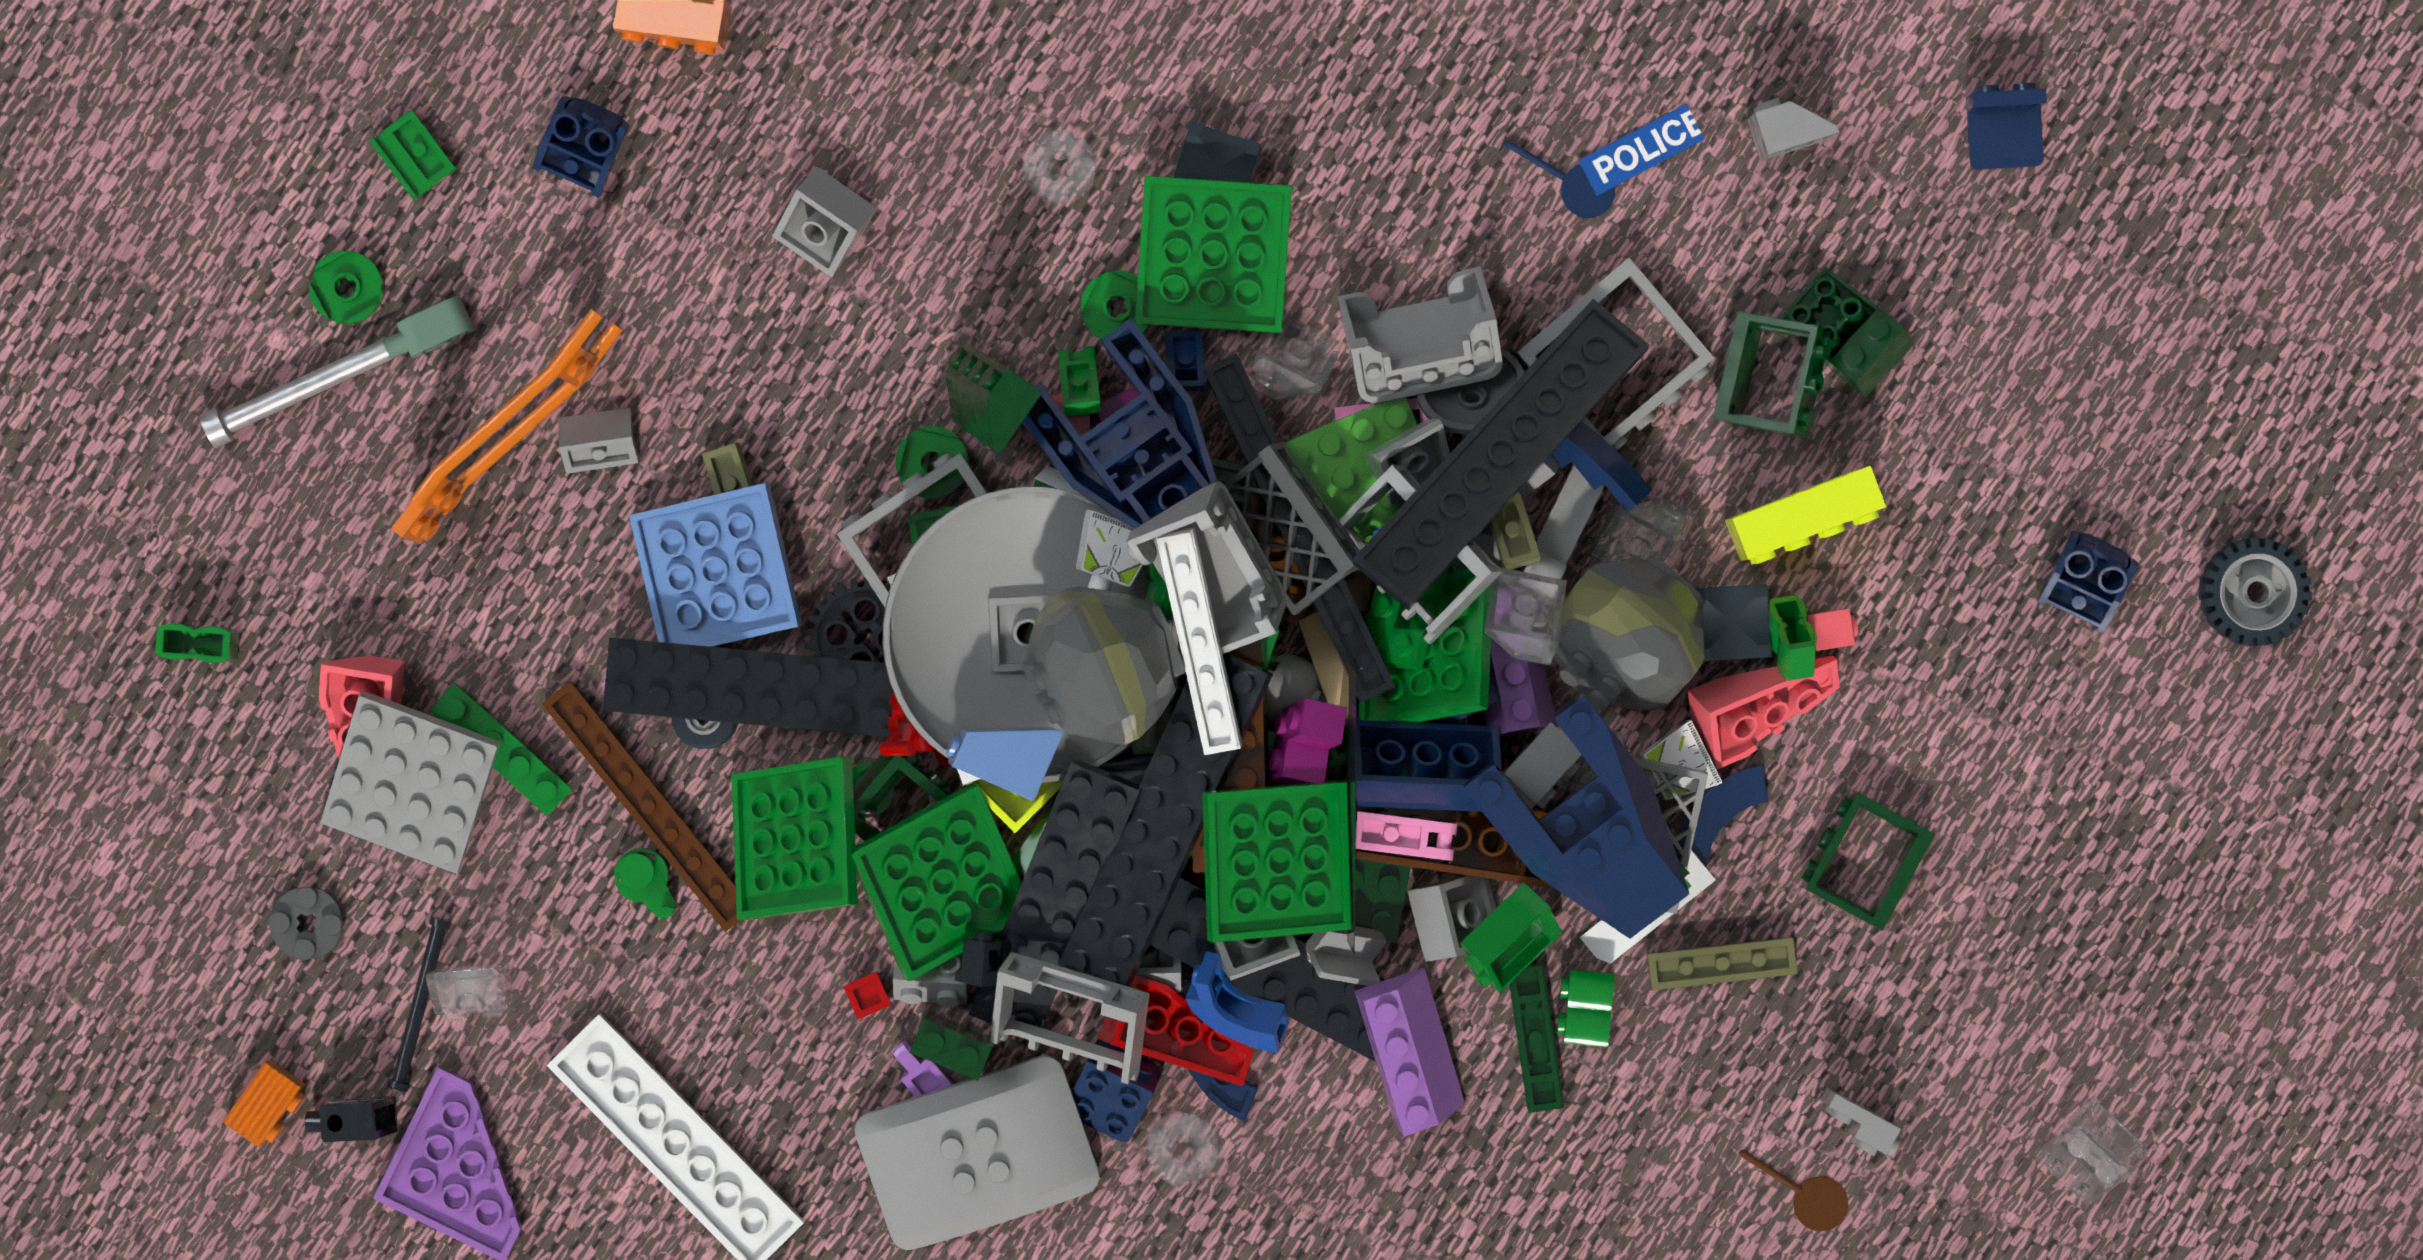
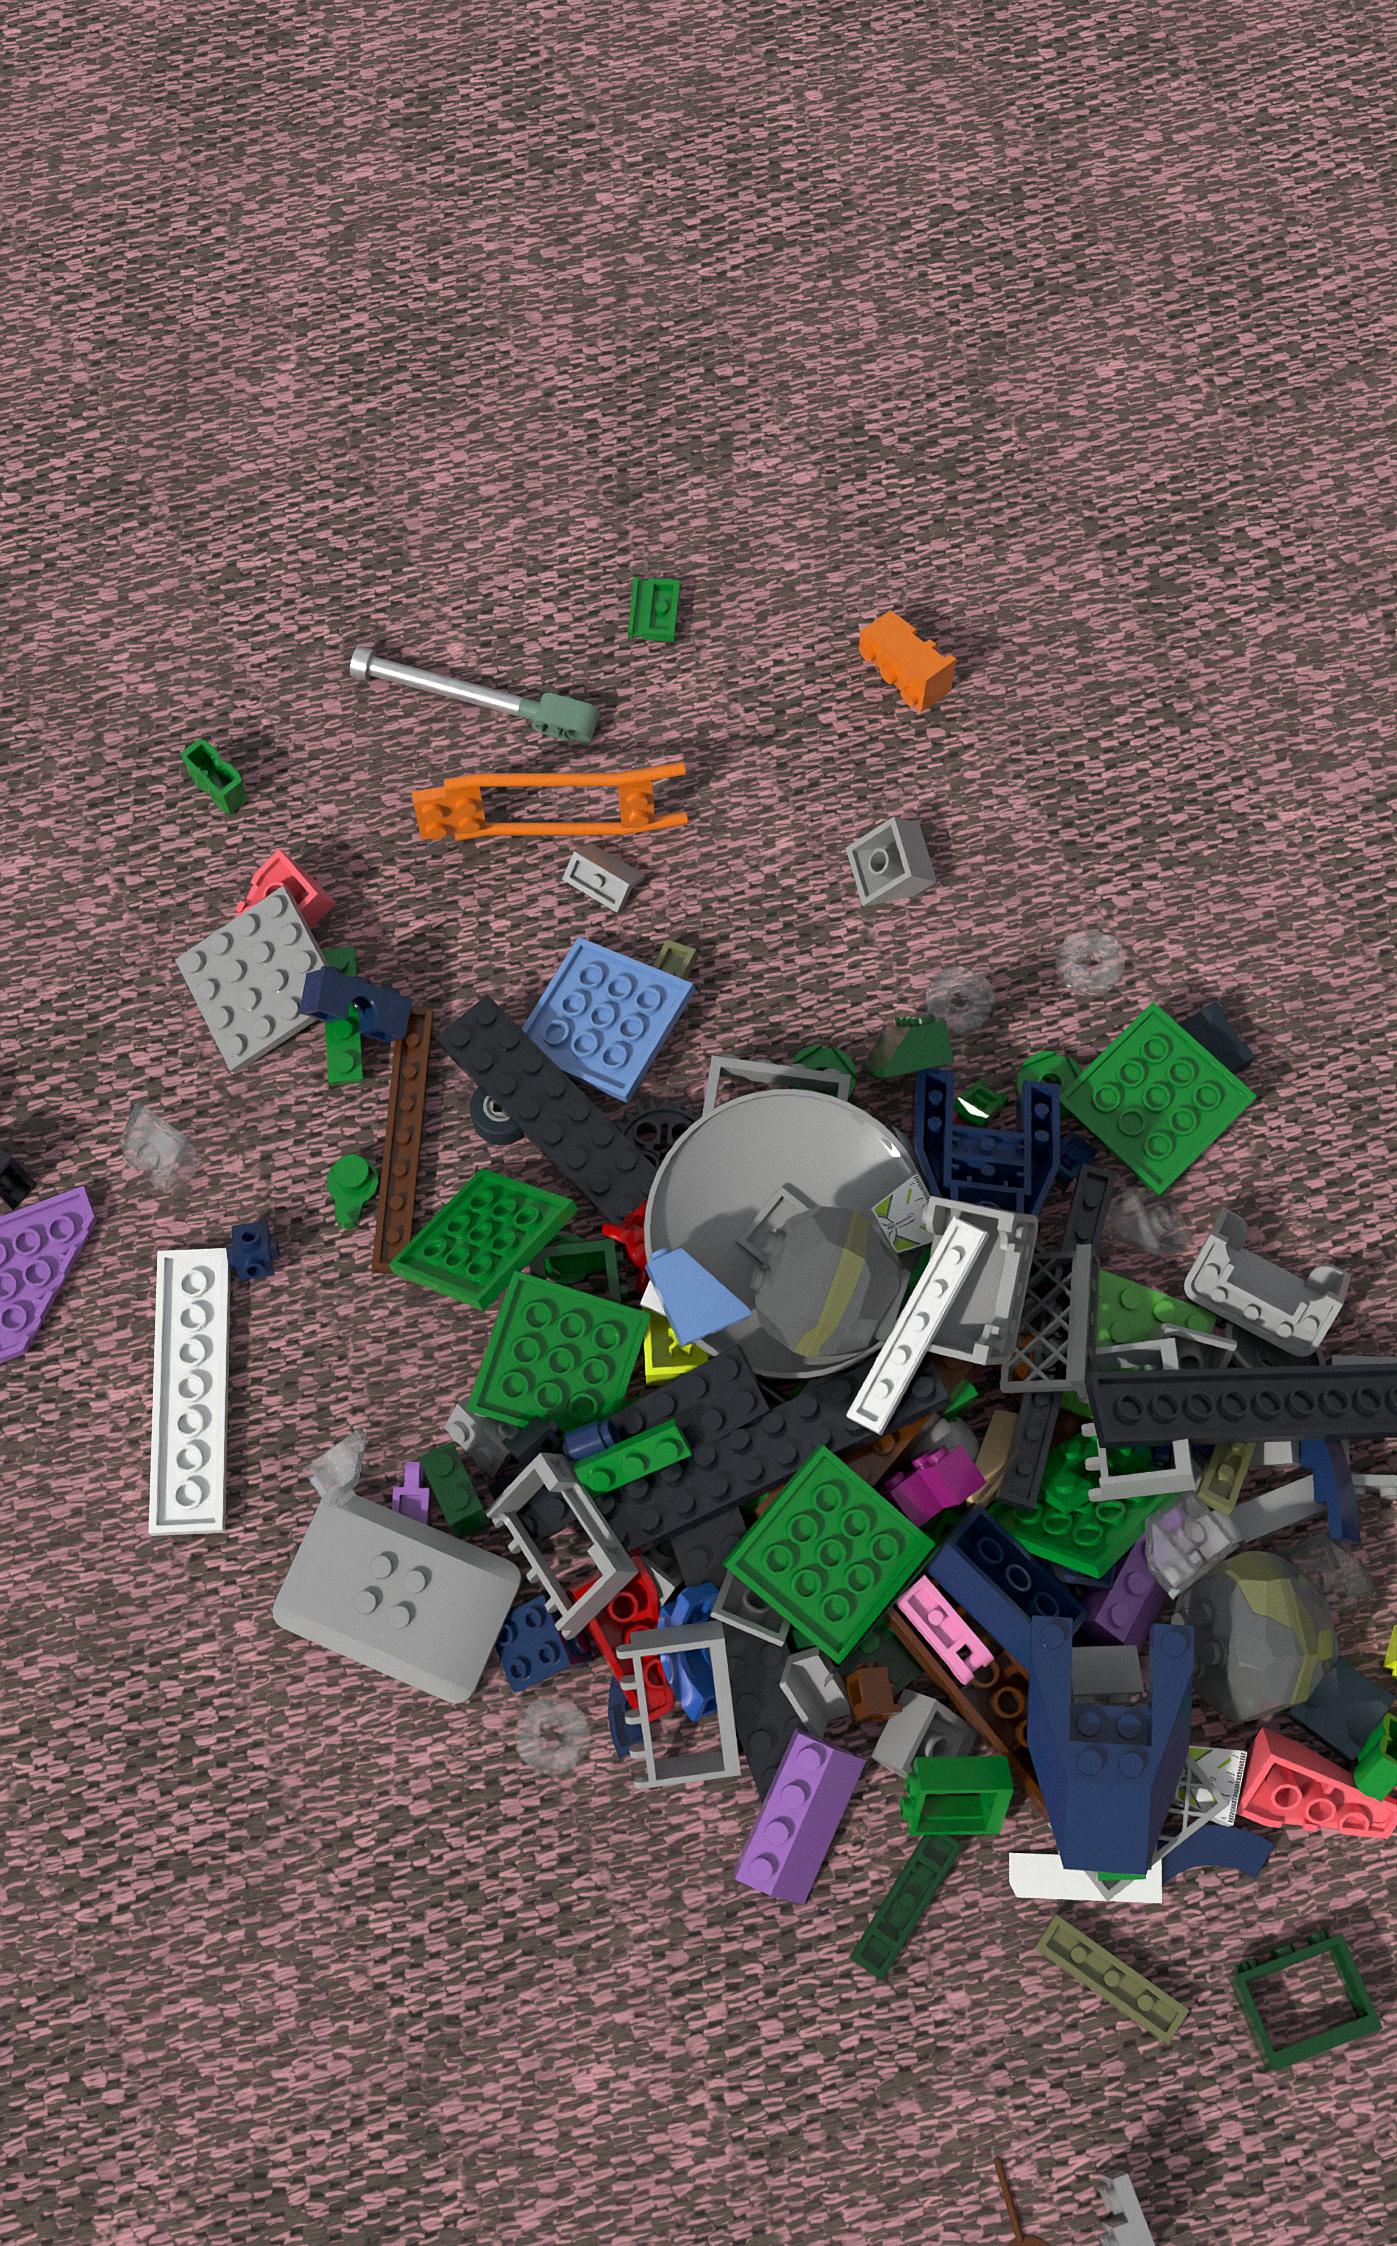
camera: 40 degrees right, 20 degrees down
(305, 944) = (86, 1003): dark grey plate -> none
(354, 267) = (536, 667): green plate -> none
(418, 1005) = (109, 1138): black bar -> none
(495, 756) = (381, 1009): none -> dark blue arch
(579, 152) = (770, 687): dark blue slope -> none
(621, 1000) = (253, 1250): none -> dark blue brick
(848, 1105) = (339, 1469): none -> clear slope
(867, 995) = (428, 1405): red plate -> none
(1003, 291) = (968, 985): none -> clear plate
(1025, 925) = (590, 1439): none -> dark blue brick
(1068, 912) = (633, 1458): none -> green plate
(1300, 1084) = (688, 1767): none -> light grey hinge
(1387, 919) = (871, 1694): none -> reddish brown brick
(1587, 1008) = (969, 1914): green brick -> none

